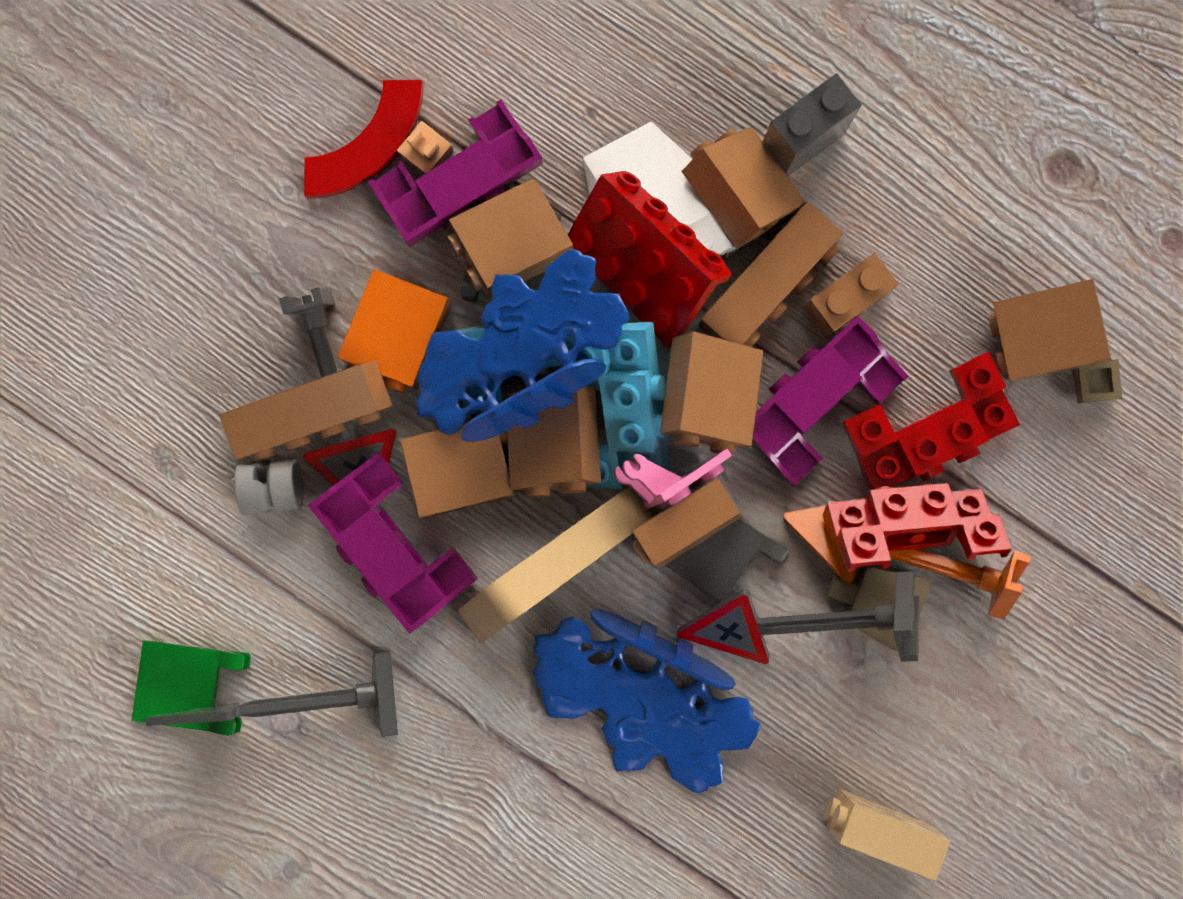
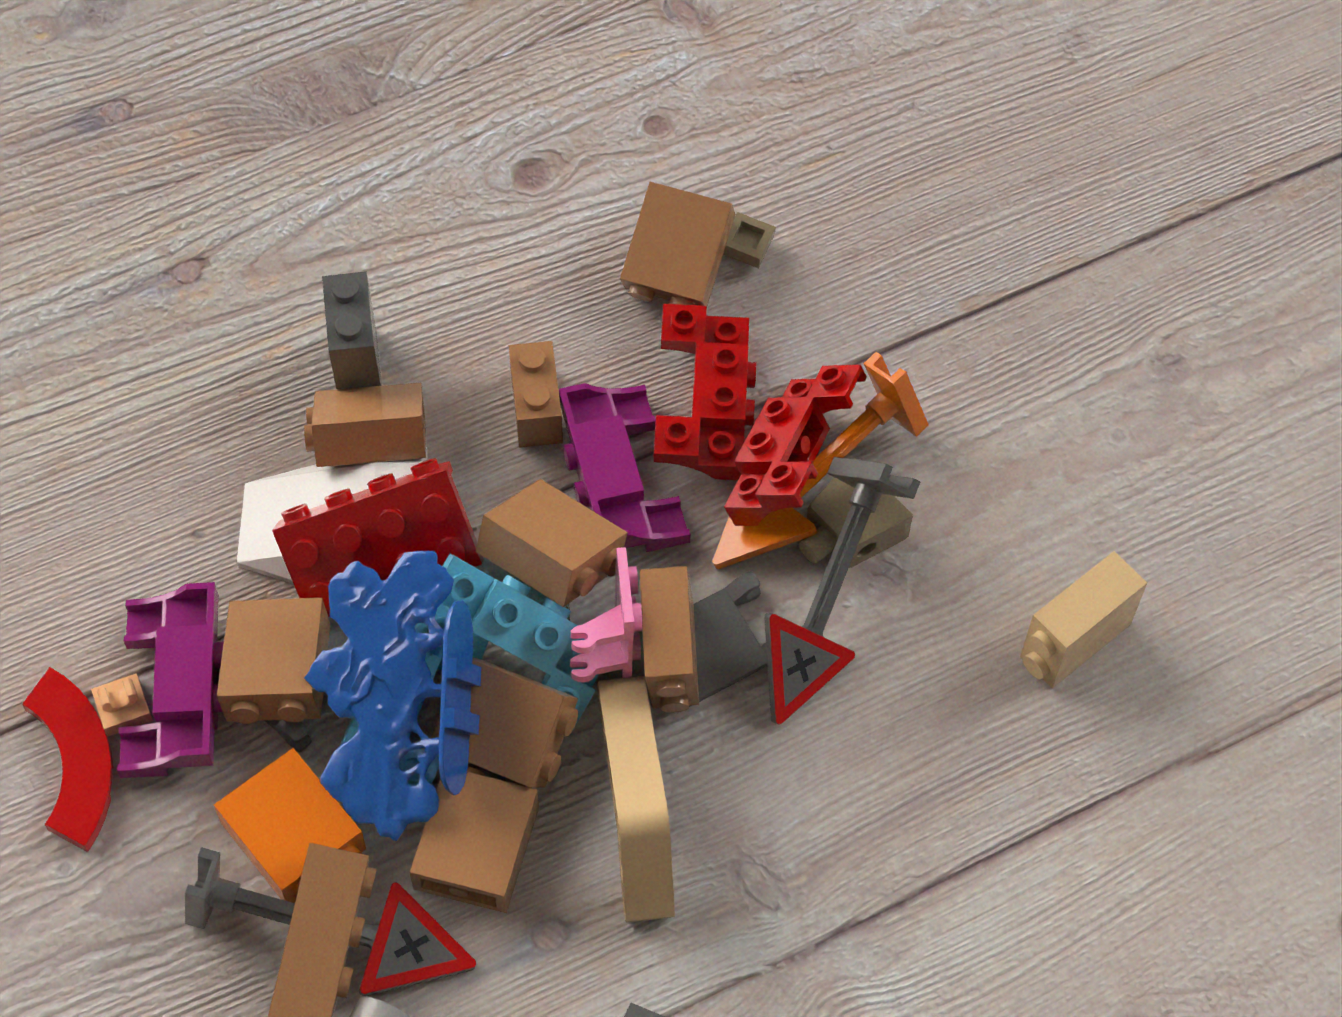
camera: 65 degrees left, 25 degrees down
(382, 551) = (514, 956): magenta bracket -> none
(647, 709) = (836, 790): blue plant -> none
(772, 276) = (471, 440): medium nougat brick -> none

